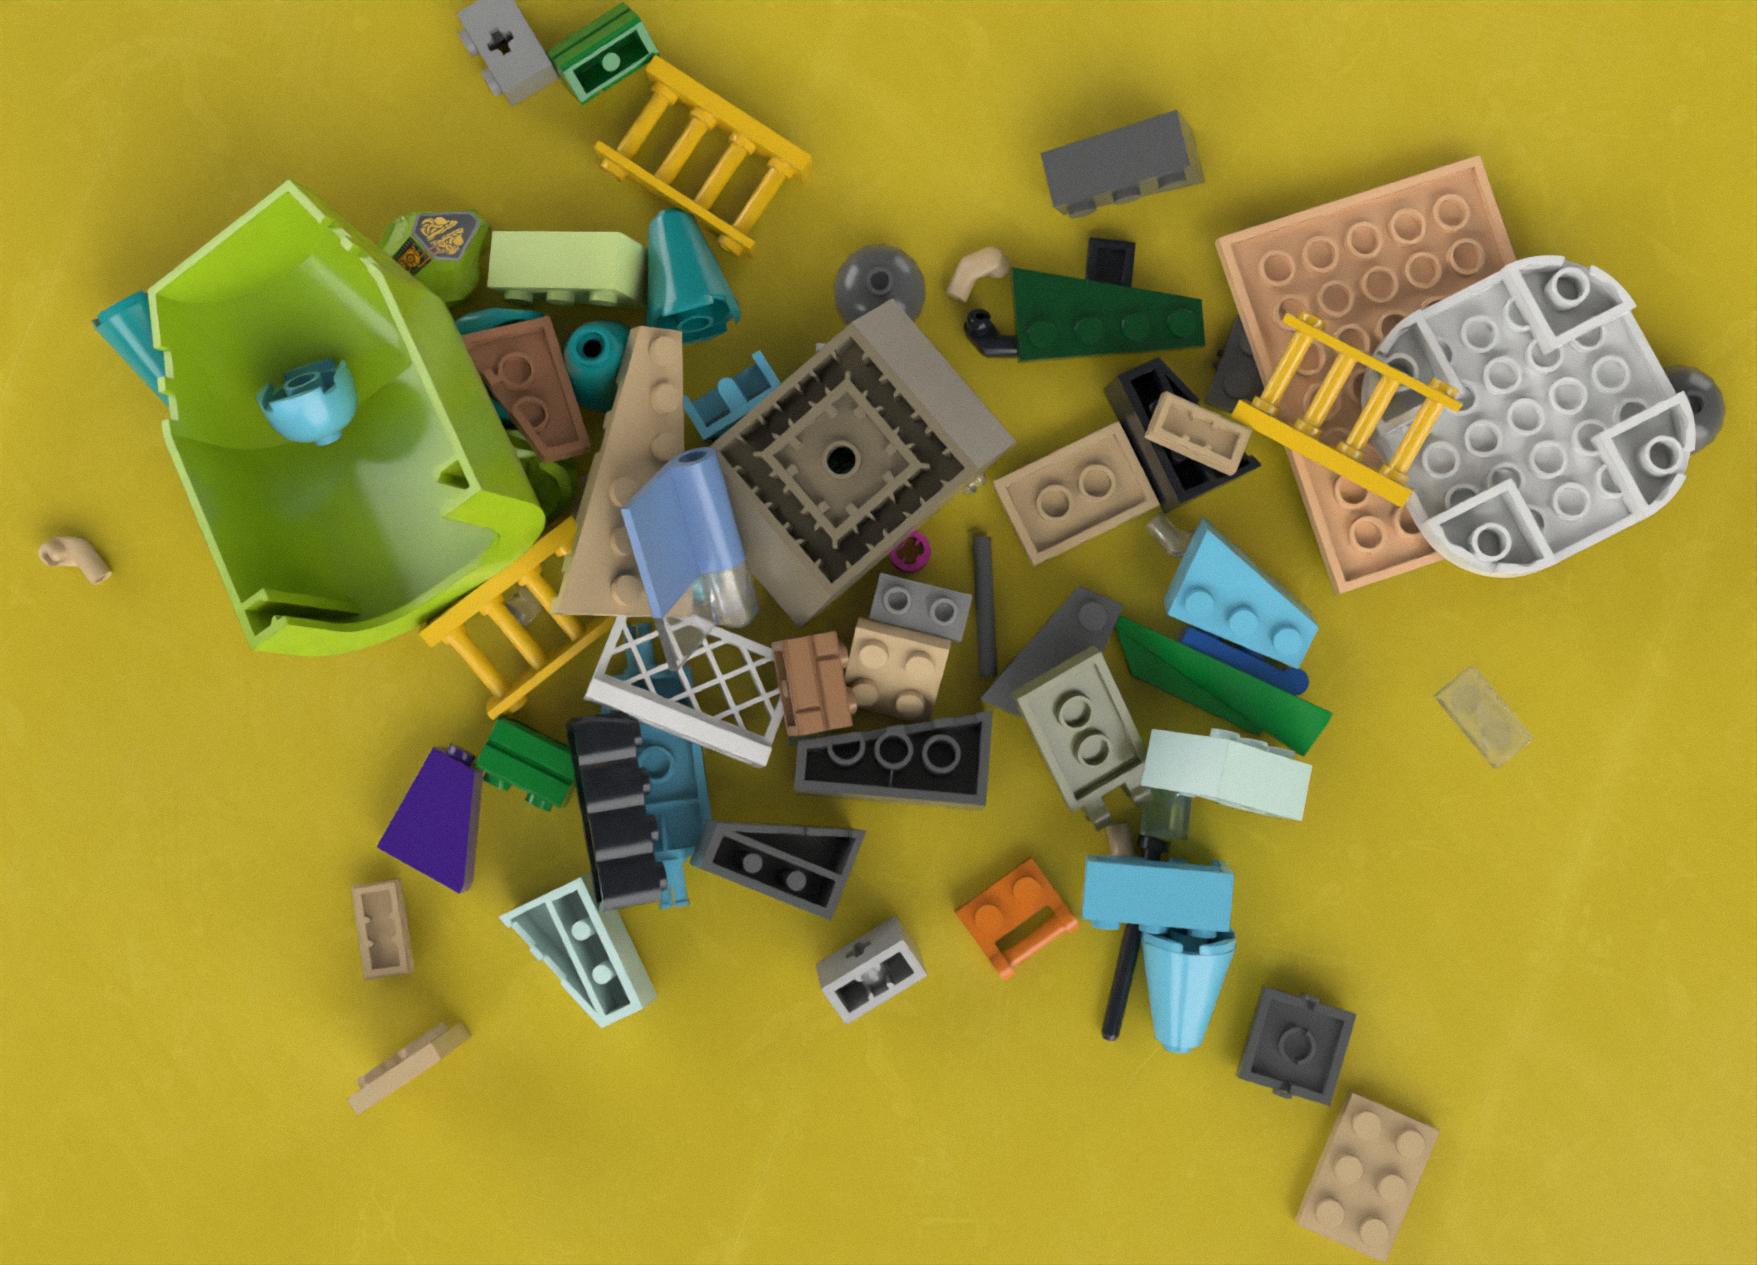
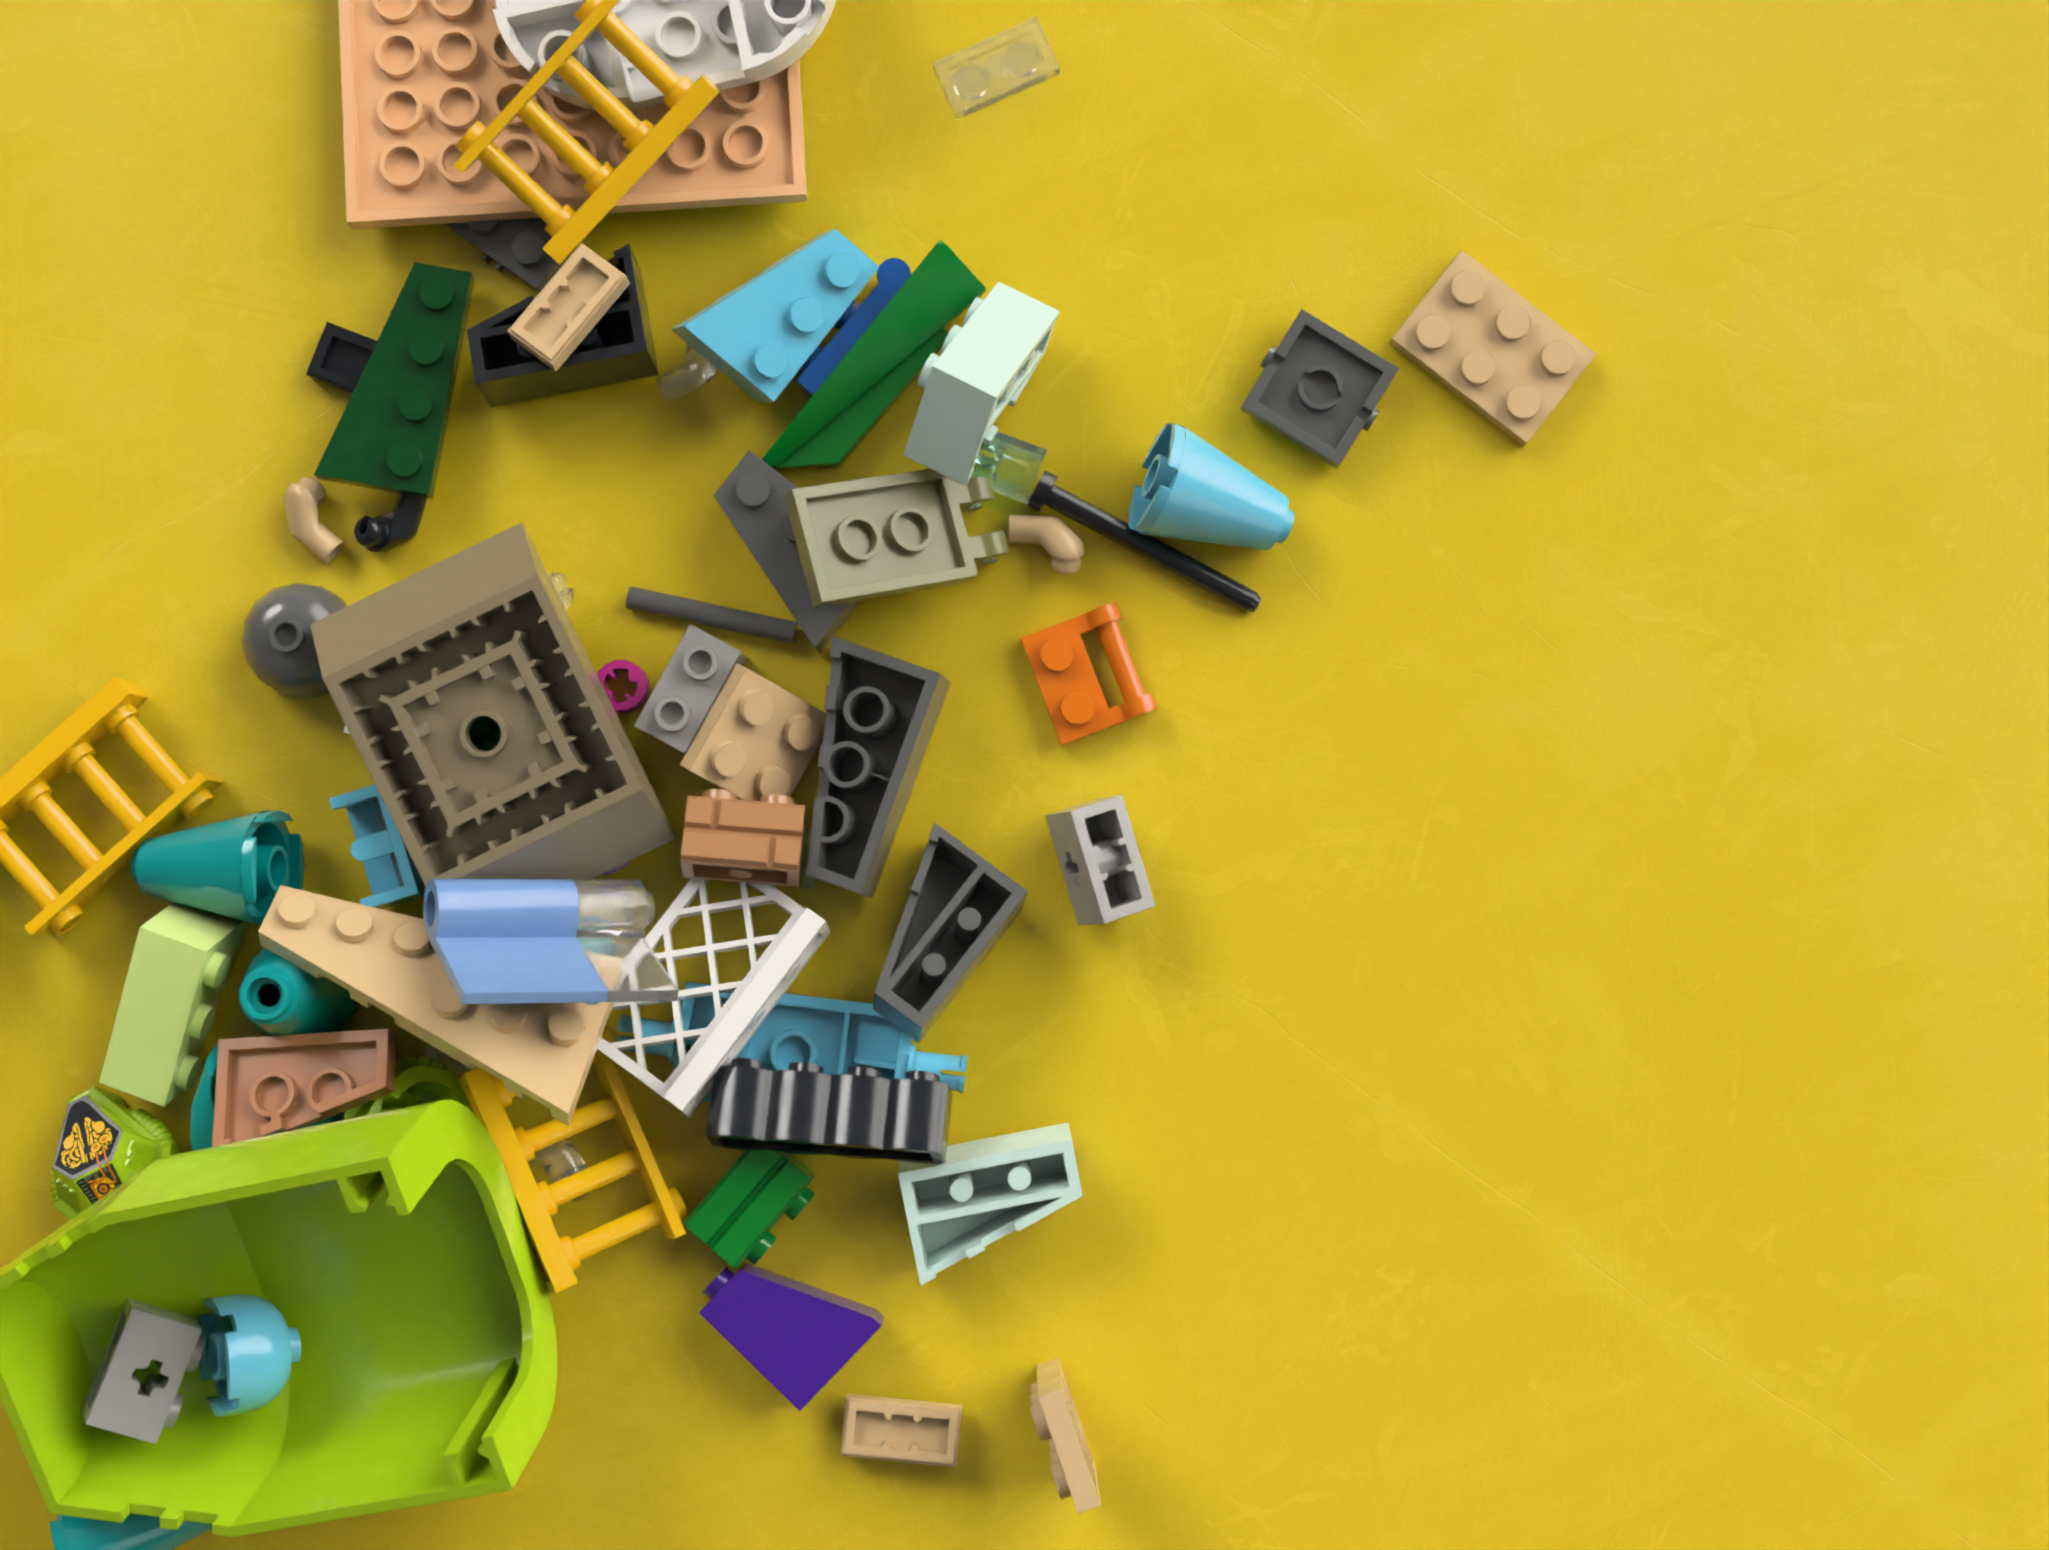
camera: 75 degrees left, 0 degrees up
(302, 318) = (117, 1397): none -> light grey brick
(1075, 493) = (606, 472): tan plate -> none
(1123, 165) = (229, 311): dark grey wedge -> none
(1157, 894) = (1098, 501): medium azure wedge -> none

